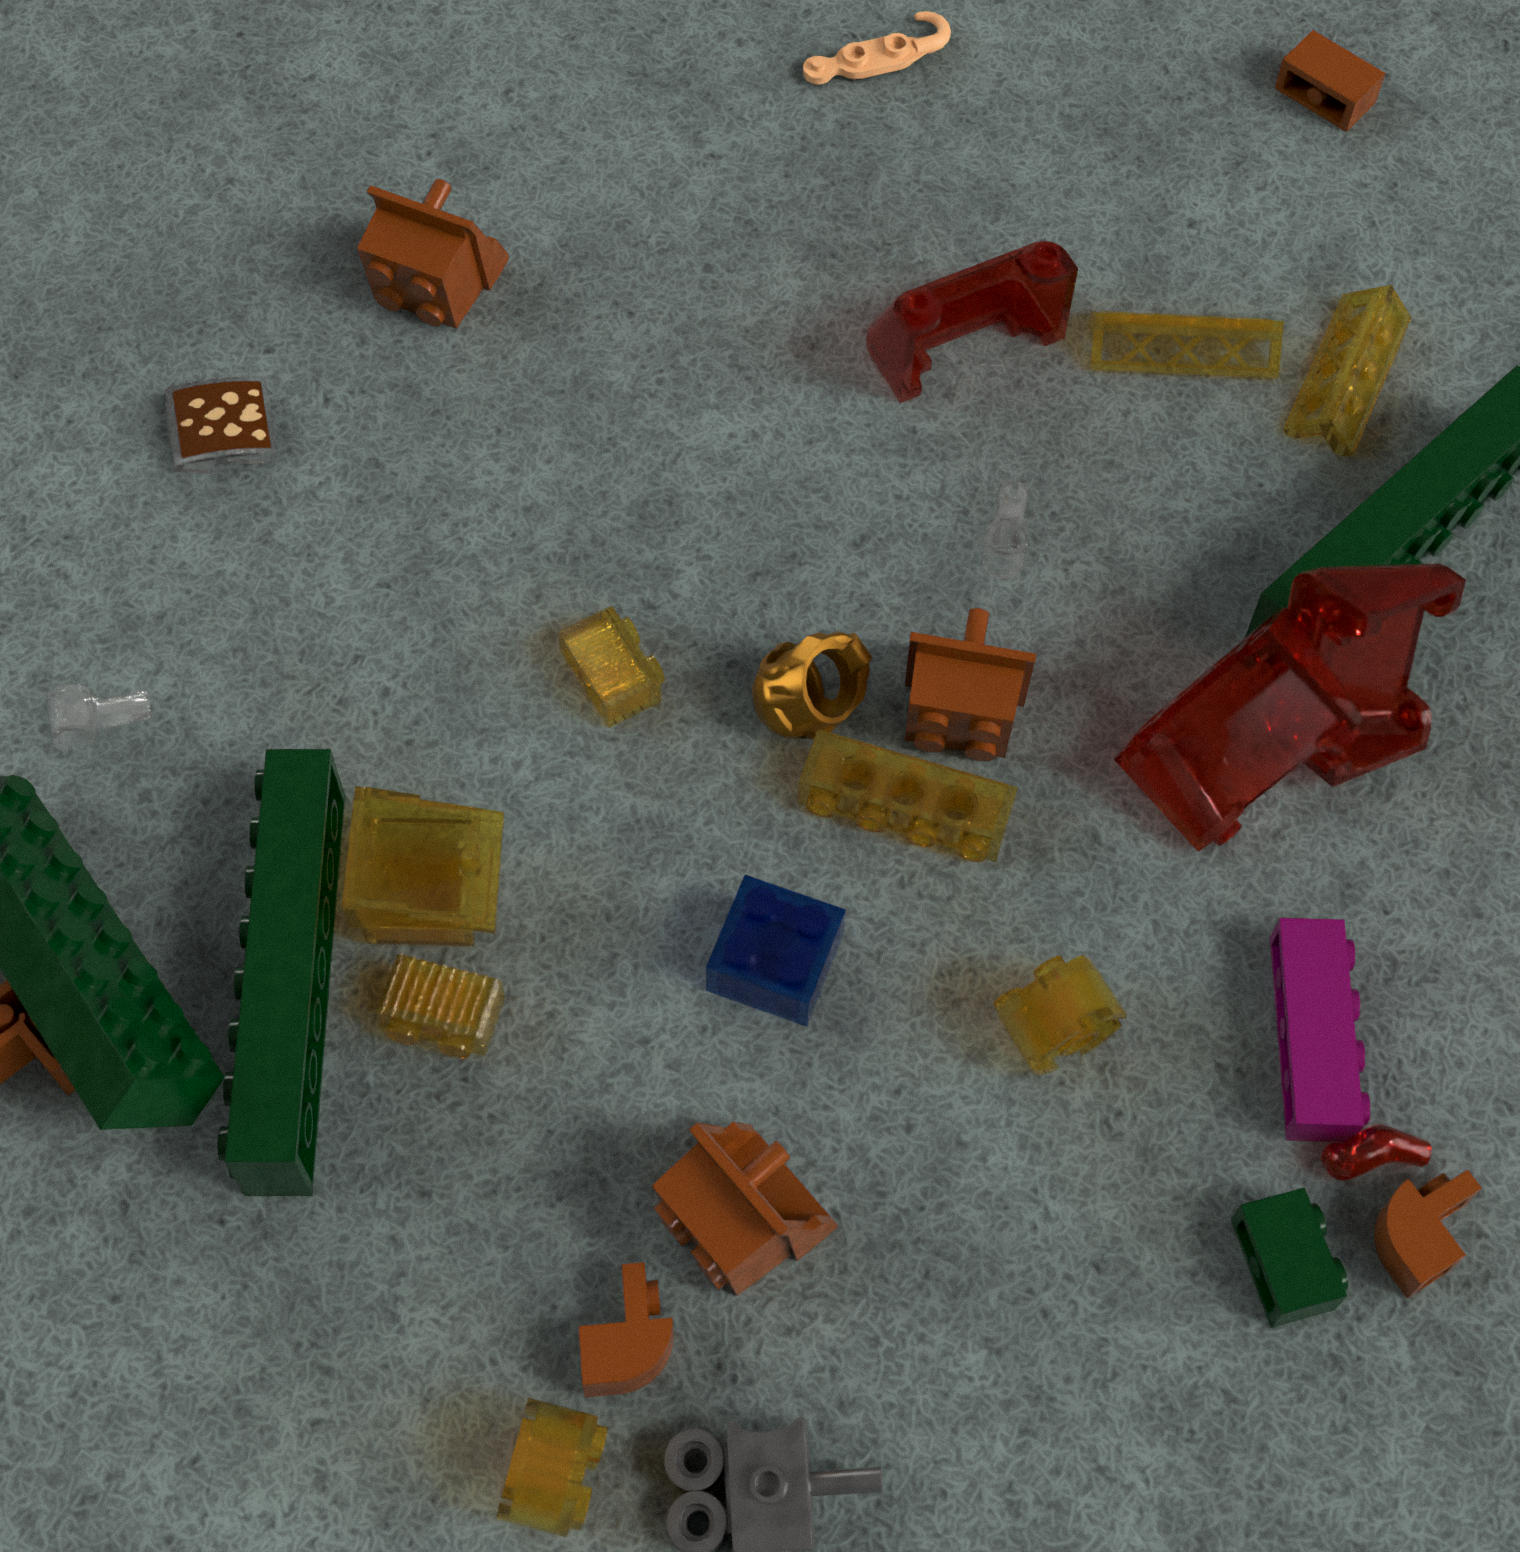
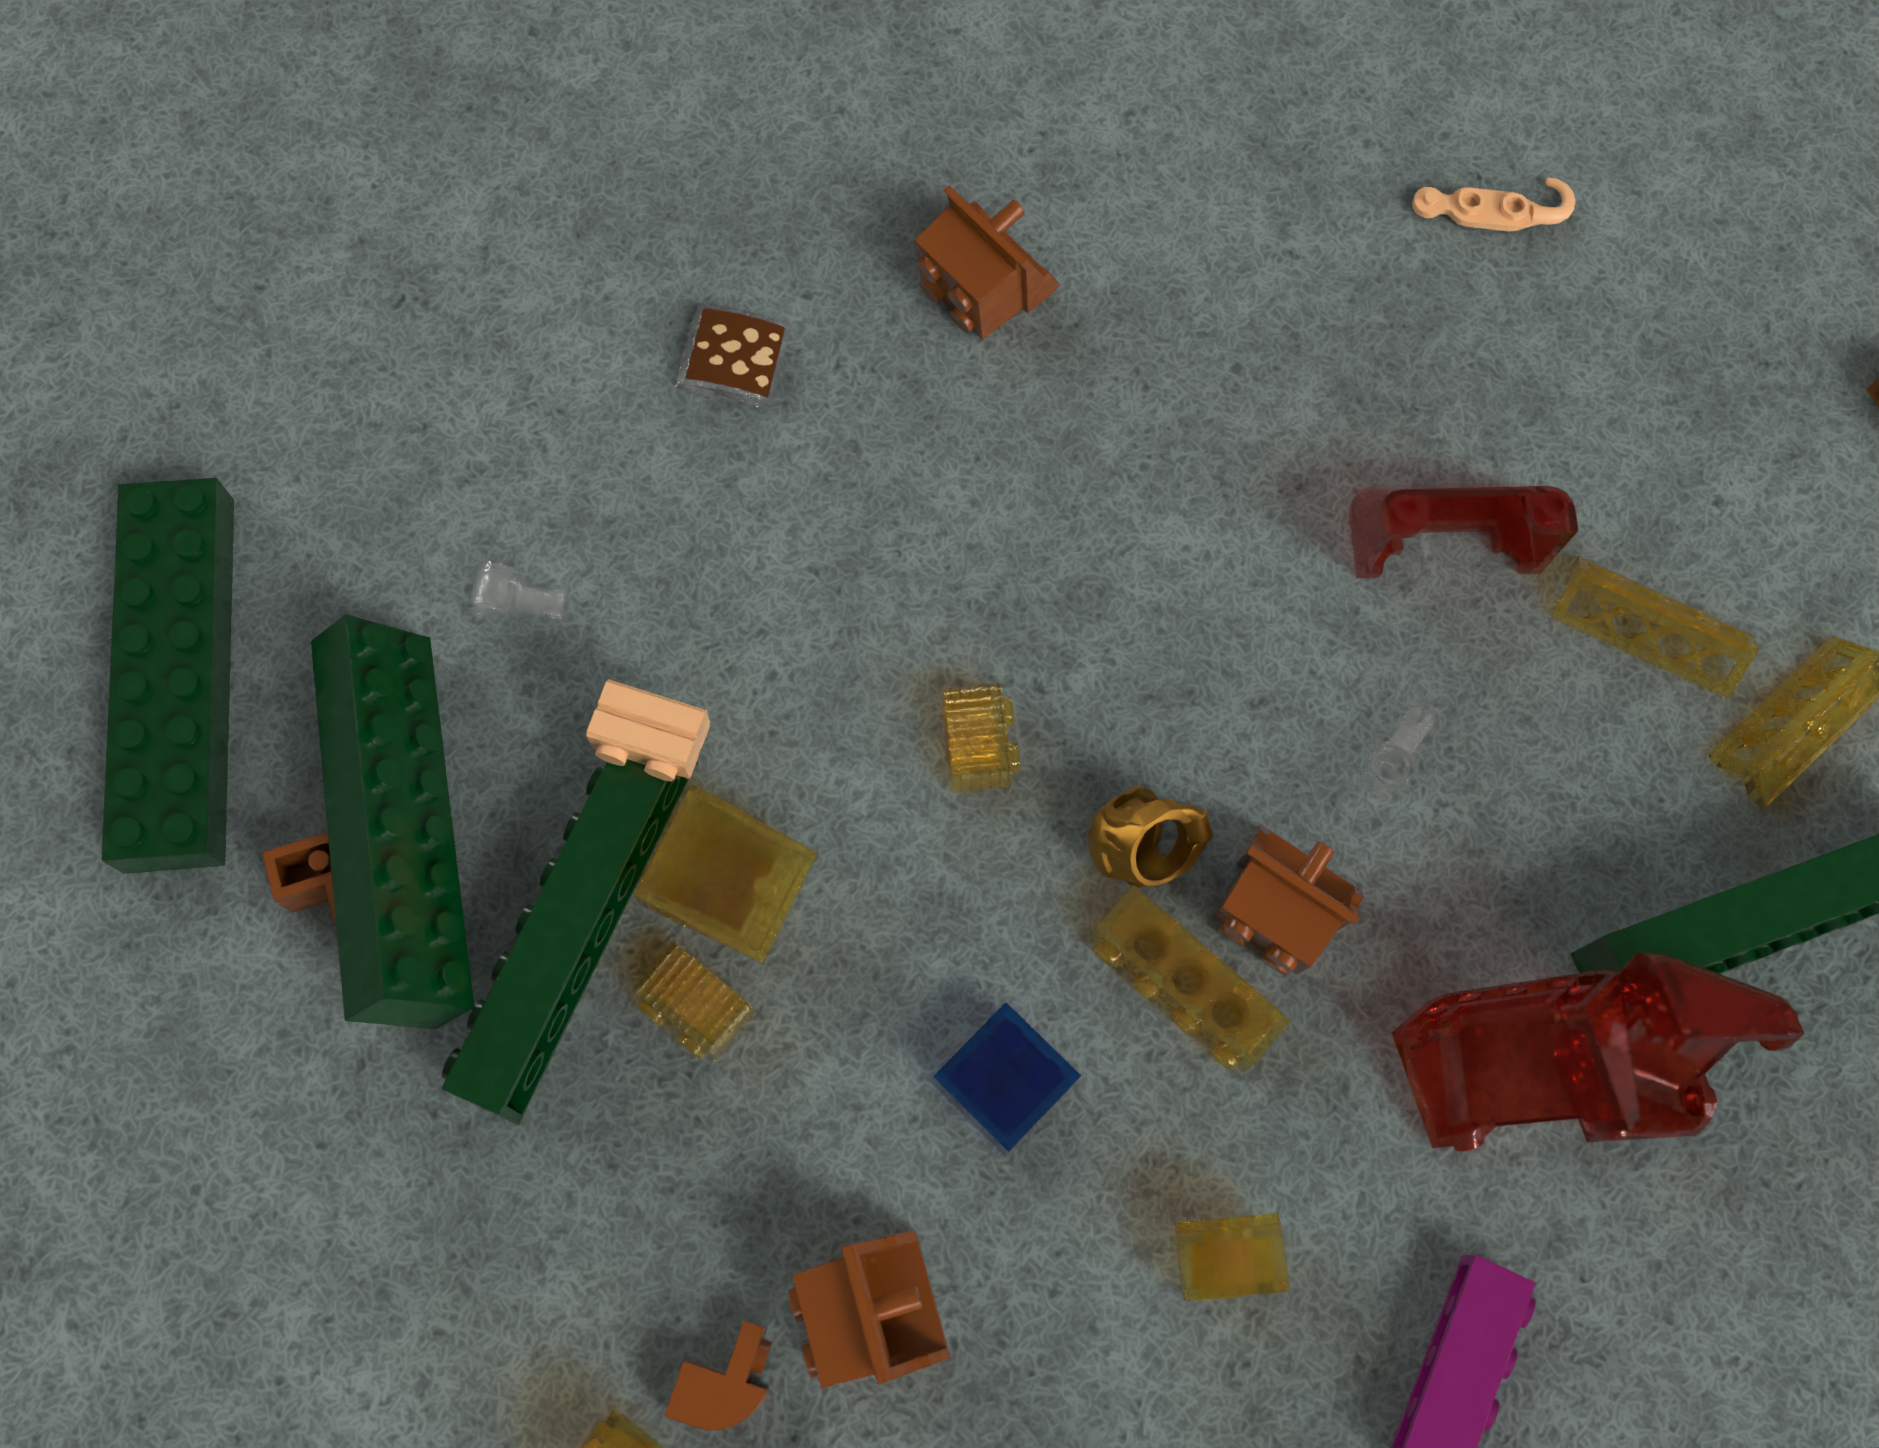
camera: 20 degrees right, 10 degrees up
(290, 753) = (647, 731): none -> light nougat brick

